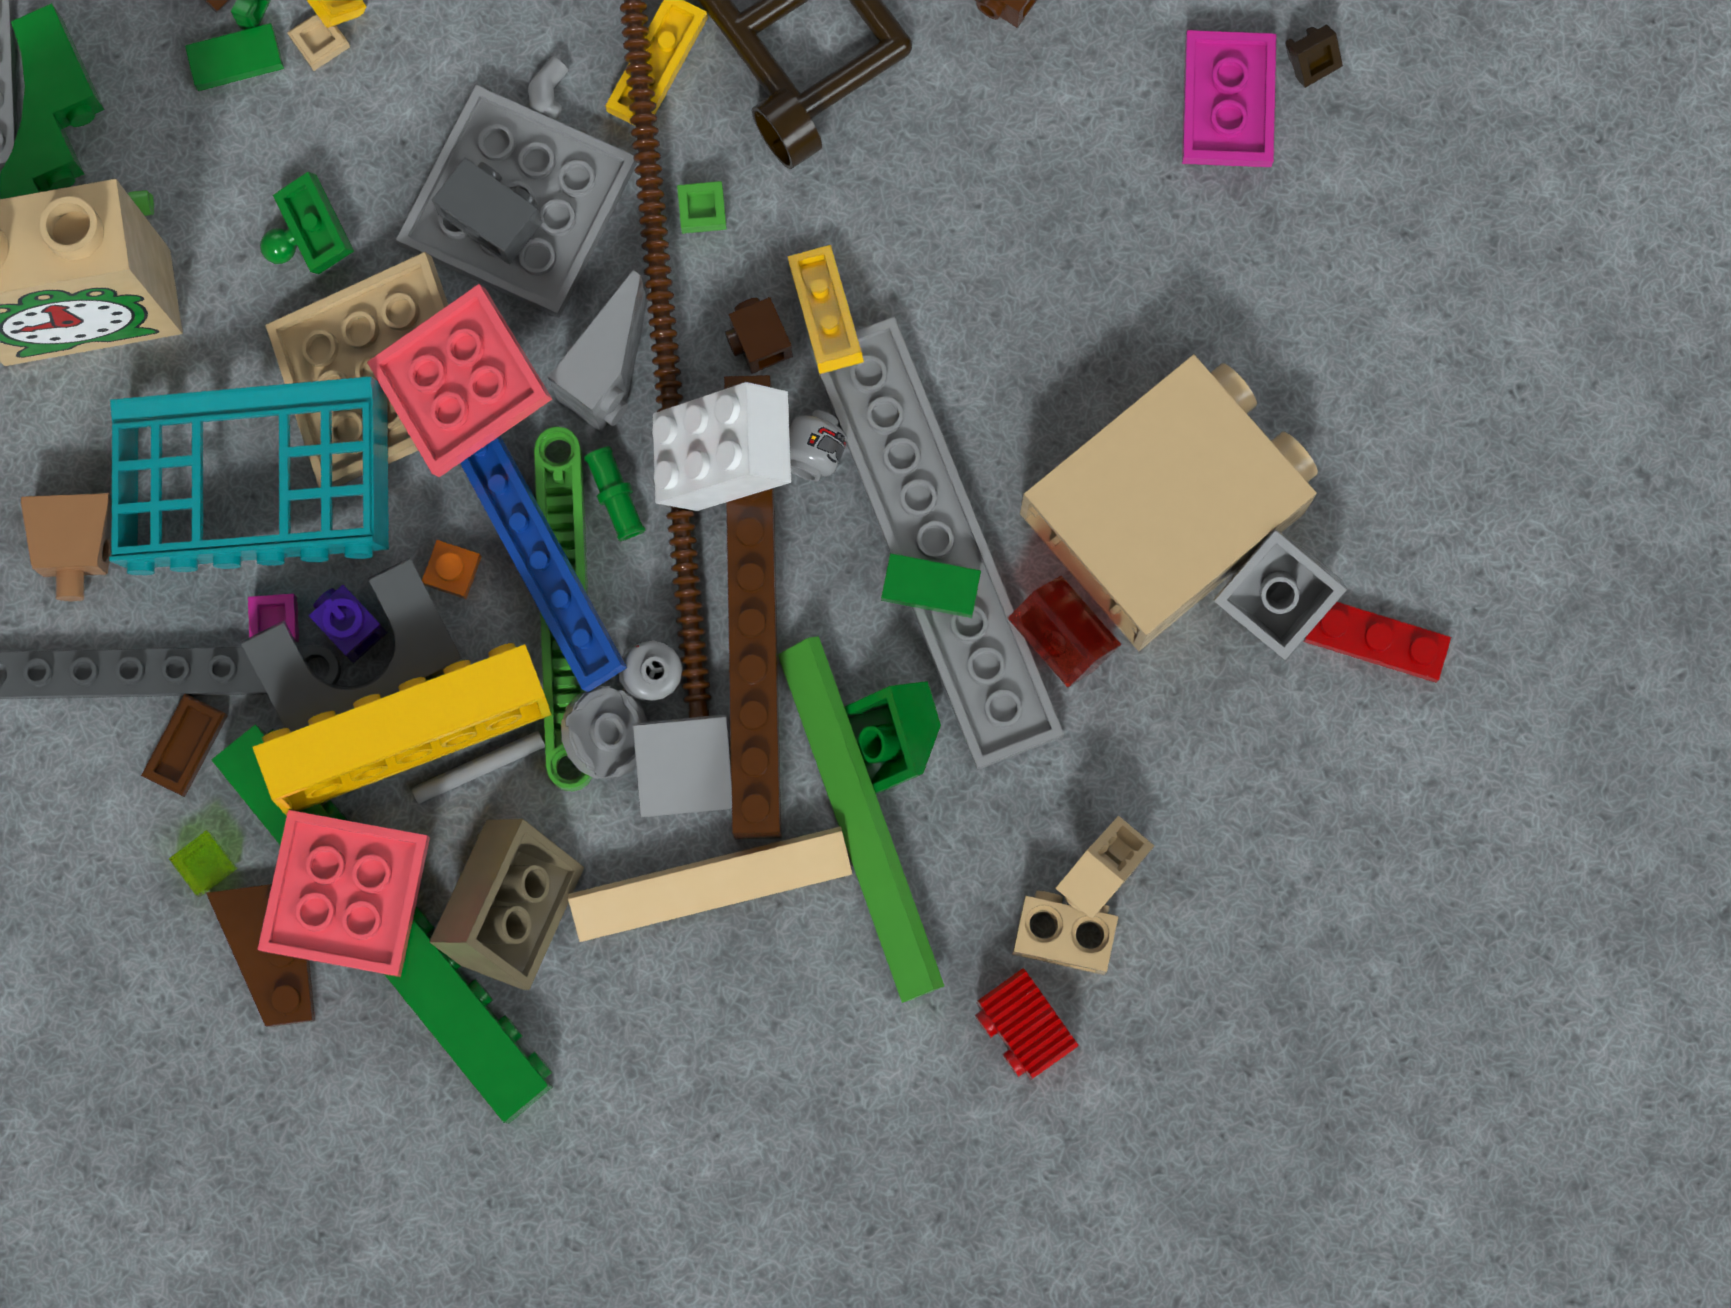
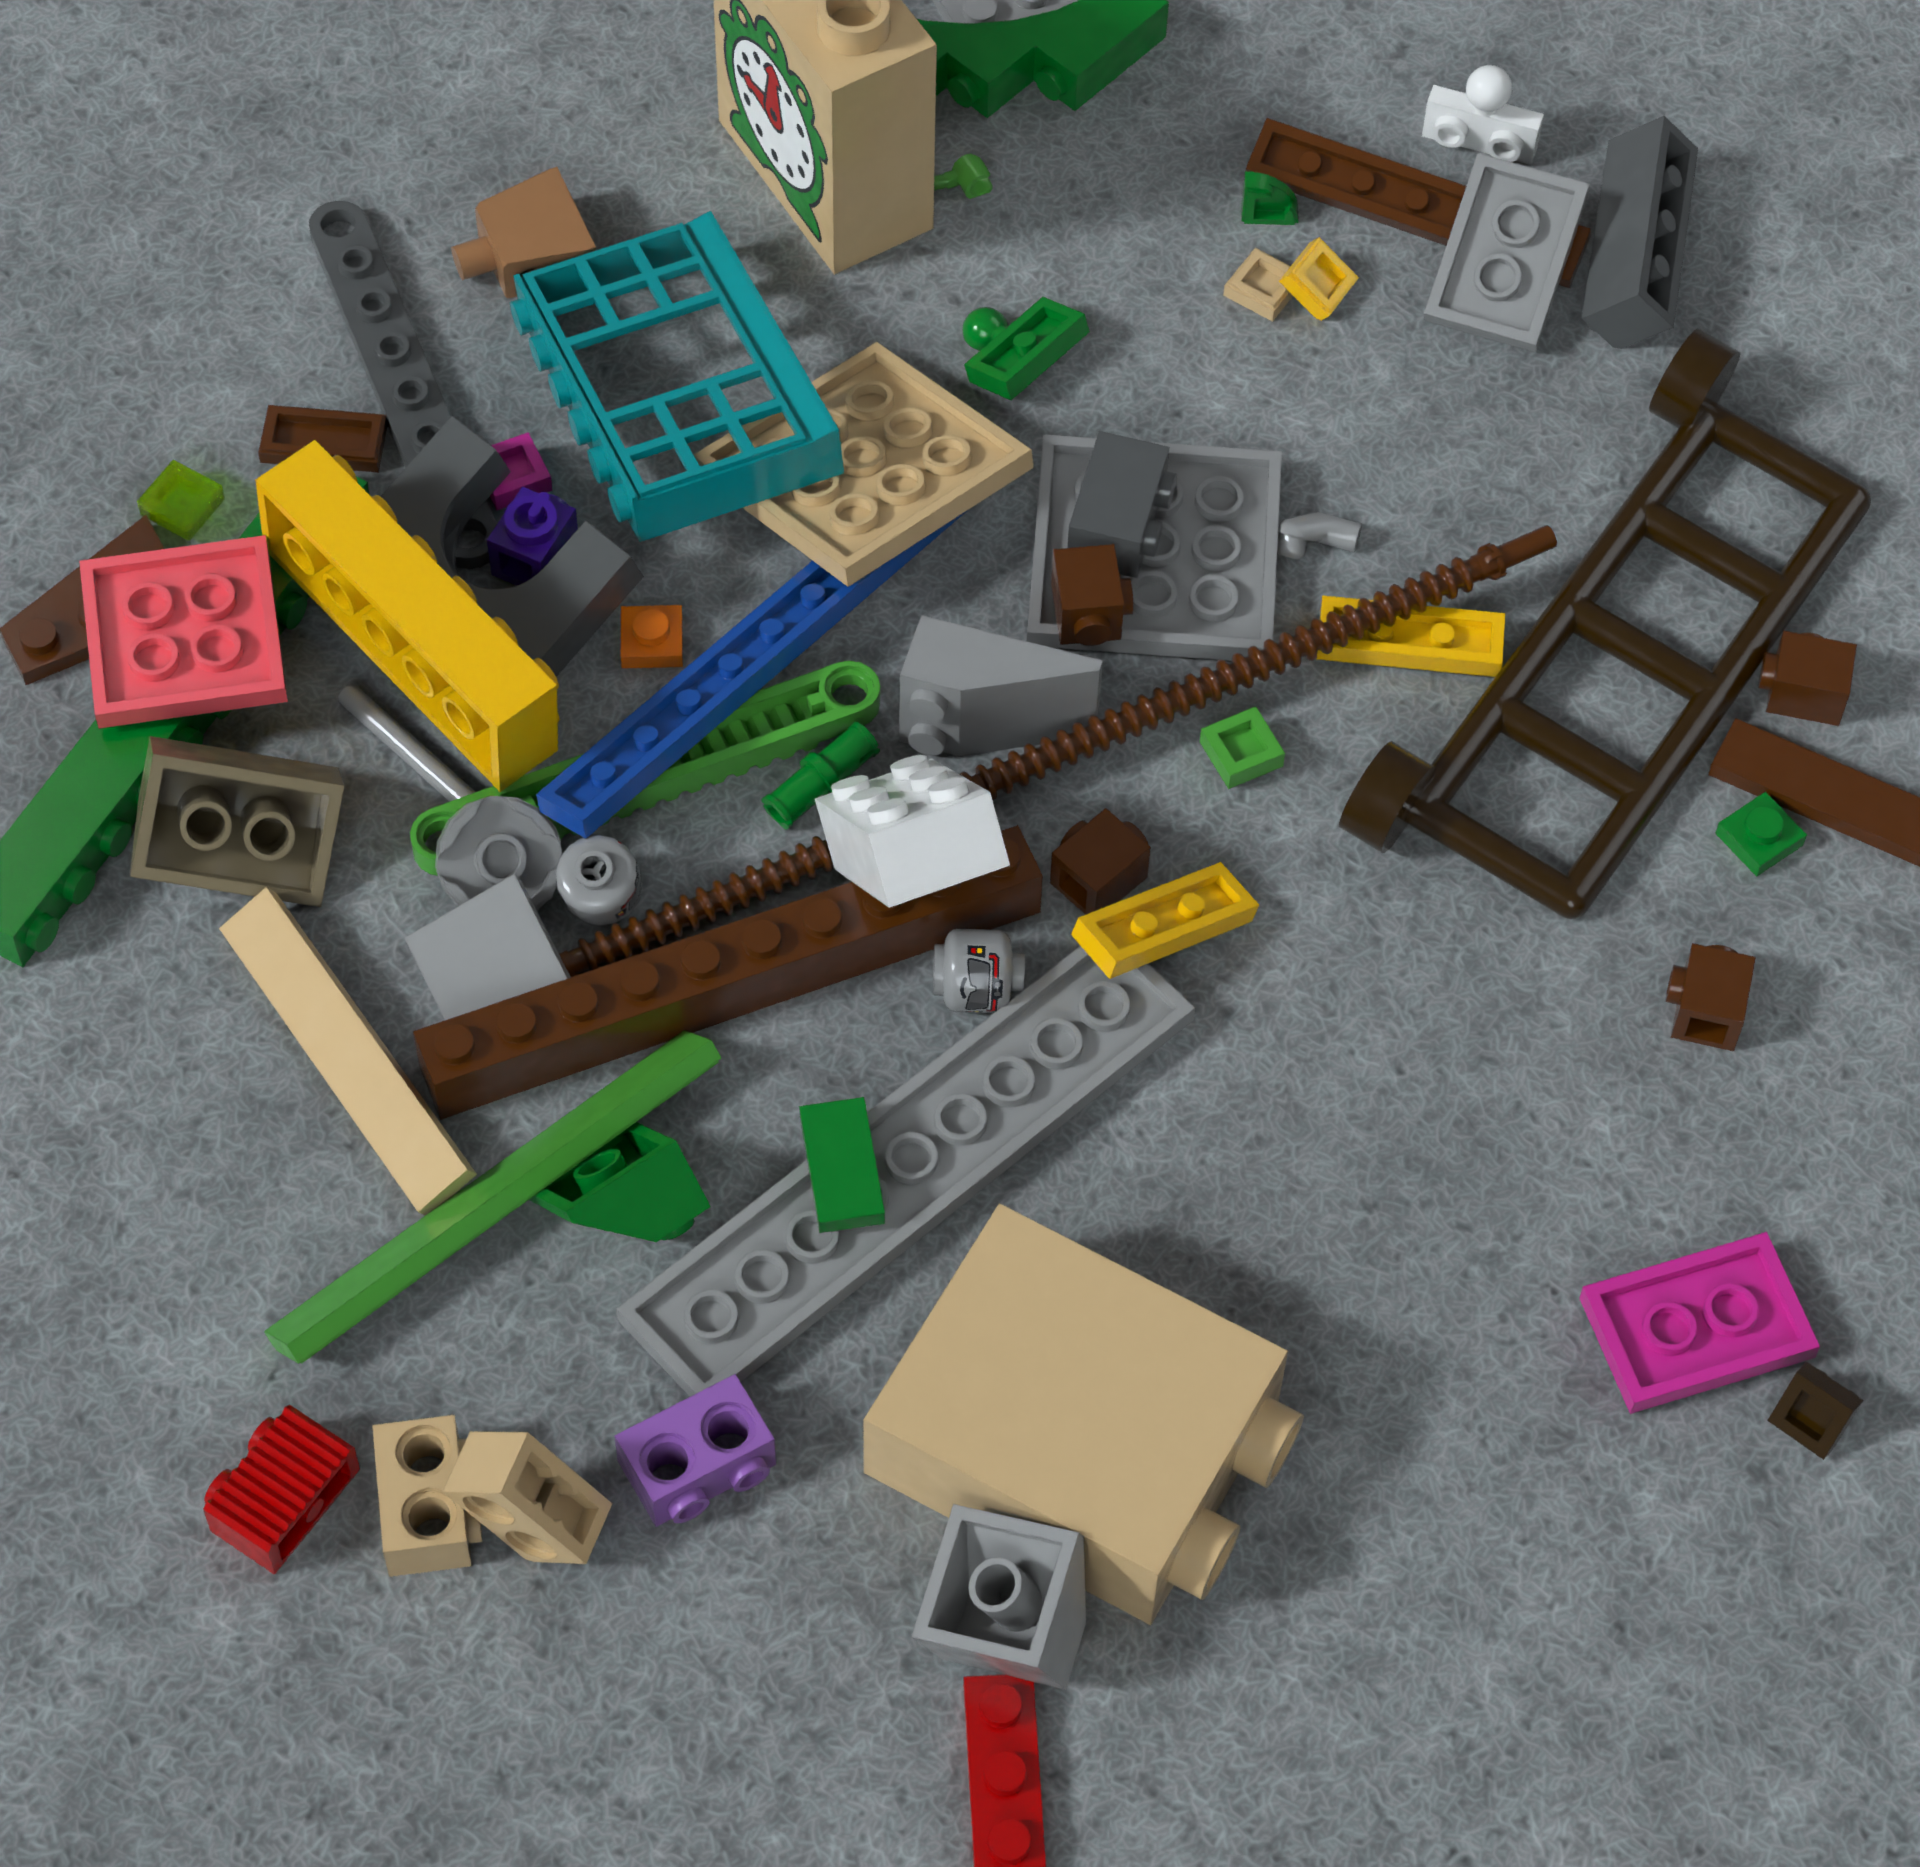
camera: 65 degrees right, 20 degrees down
(234, 57) = (1200, 209): green tile -> none
(459, 380) = (875, 524): coral plate -> none
(556, 259) = (1089, 595): none -> reddish brown brick
(1064, 631) = (844, 1349): clear red brick -> none
(1086, 751) = (685, 1438): none -> medium lavender brick

